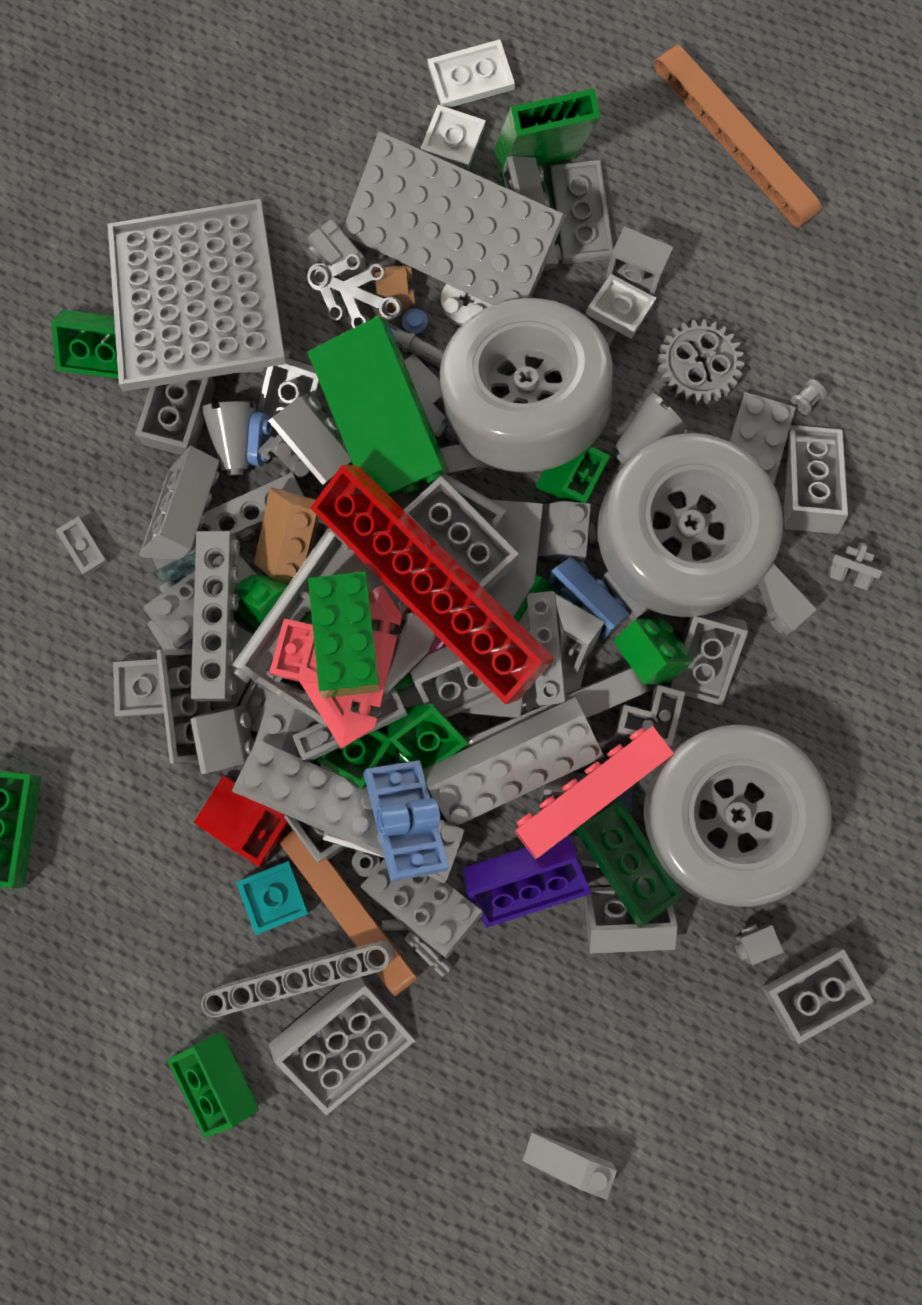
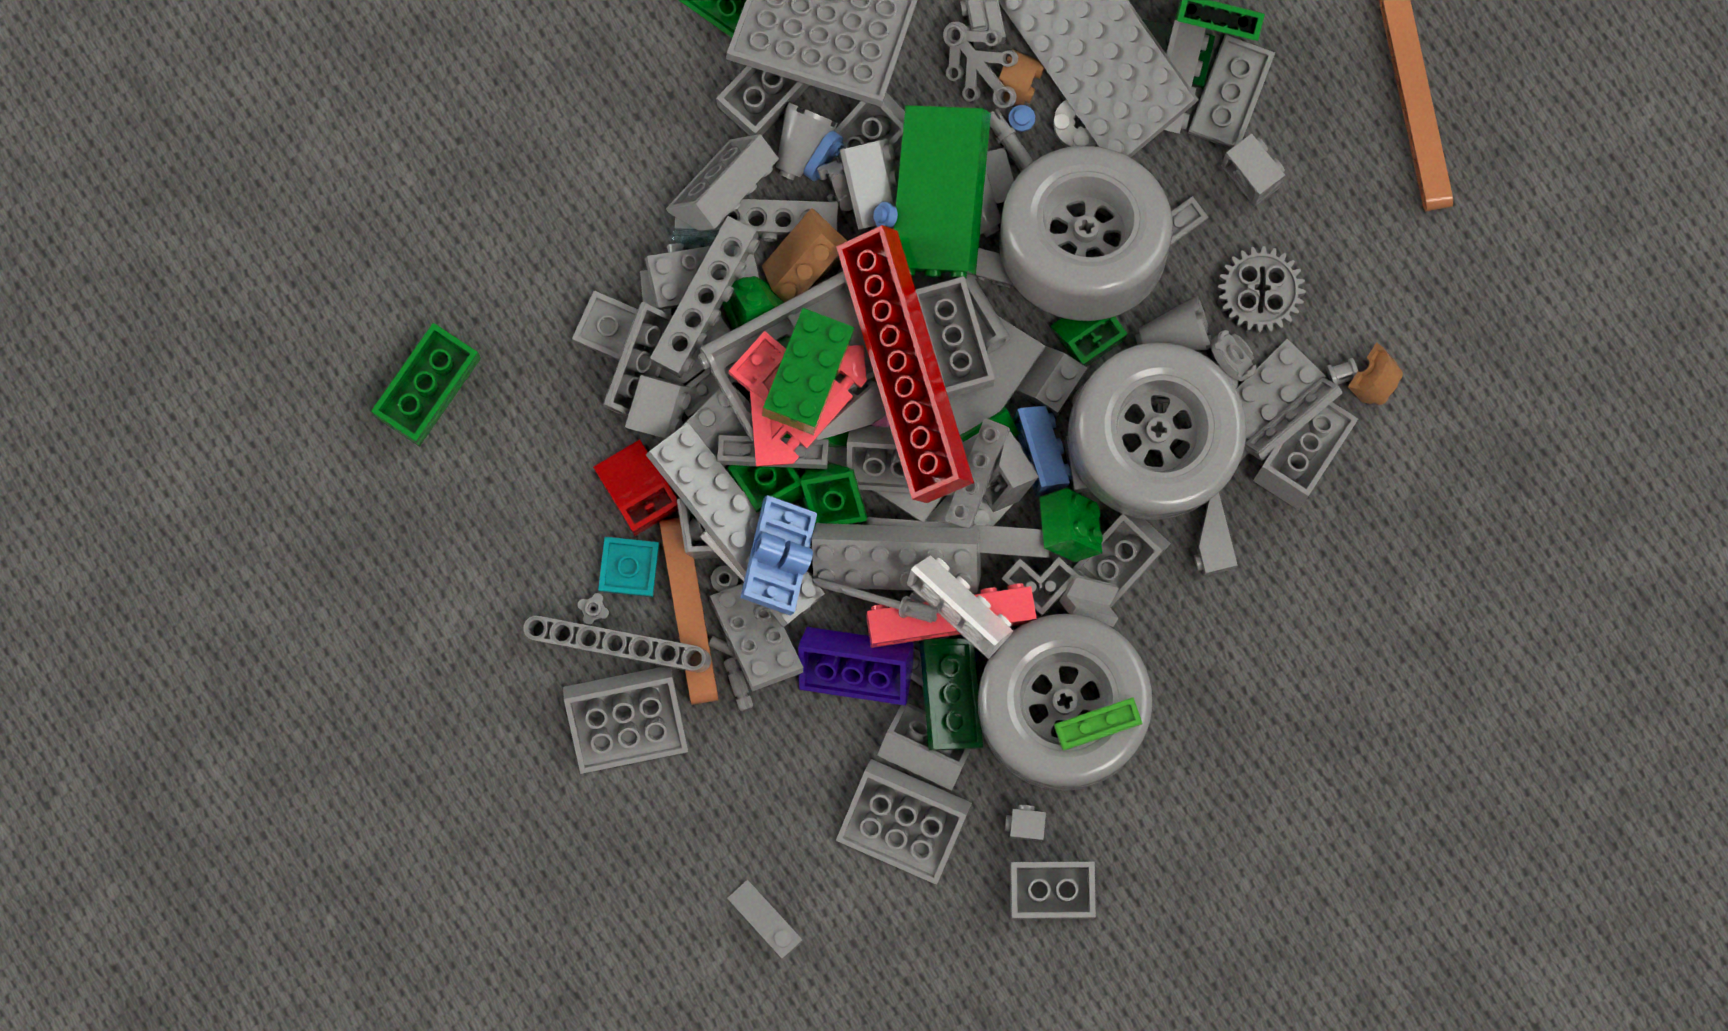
camera: 25 degrees right, 0 degrees up
(82, 546) = (617, 171): light grey plate -> none
(213, 1085) = (498, 696): green slope -> none
(267, 953) = (591, 616): none -> light grey plate
(339, 456) = (885, 214): none -> medium blue plate
(551, 807) = (906, 606): none -> light grey piece
(604, 781) = (959, 606): none -> white slope
(620, 306) = (1216, 201): white plate -> none
(647, 1000) = (903, 821): none -> light grey slope
(703, 709) = (1090, 599): none -> light grey panel
(708, 424) = (1233, 355): none -> light grey tile
(787, 823) = (1098, 724): none -> bright green tile
(794, 451) = (1293, 418): none -> light grey tile
(845, 386) = (1379, 379): none -> medium nougat cylinder
(865, 573) = (1303, 556): light grey hips -> none

